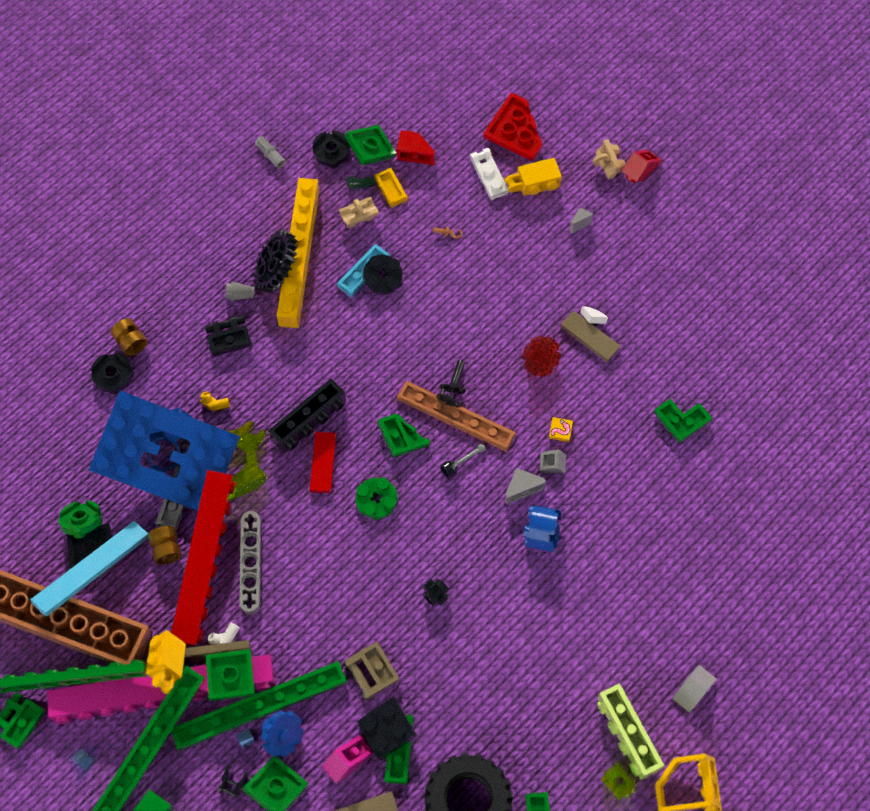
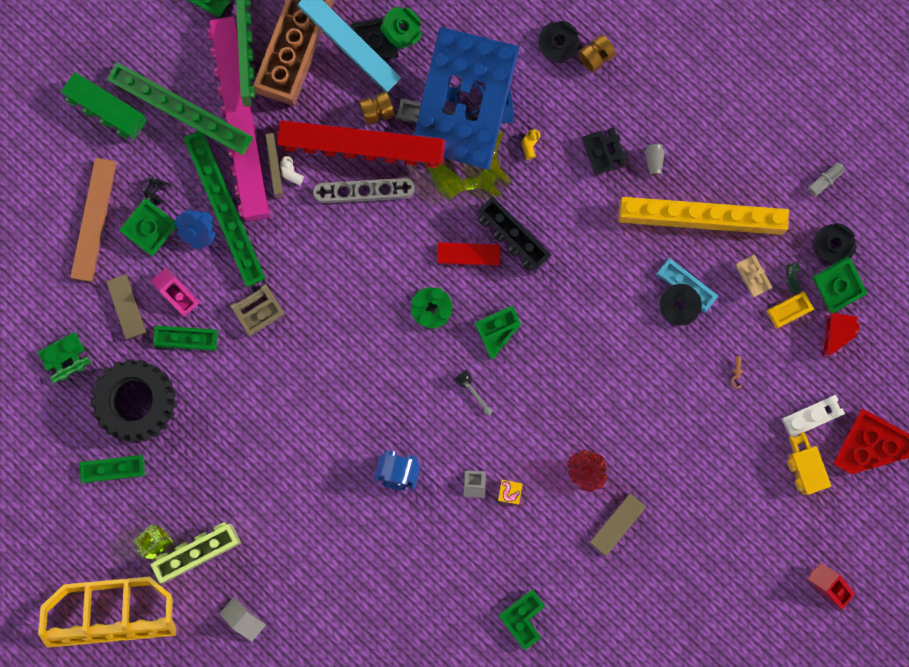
camera: 85 degrees right, 15 degrees up
(82, 759) = (178, 55): clear light blue piece -> none
(165, 660) = (255, 117): yellow brick -> none
(230, 675) = (245, 177): green plate -> none
(245, 738) = (196, 197): medium blue piece -> none
(275, 261) = (684, 190): black gear -> none
(386, 728) = (201, 325): black plate -> none
(435, 592) = (333, 367): black gear -> none
(453, 387) = (554, 381): black piece -> none
(457, 417) = (522, 385): nougat tile -> none
(523, 485) = (446, 451): light grey slope -> none
(580, 220) = (756, 515): light grey slope -> none
(593, 315) = (641, 528): white tile -> none
(607, 158) = (836, 546): tan hips -> none

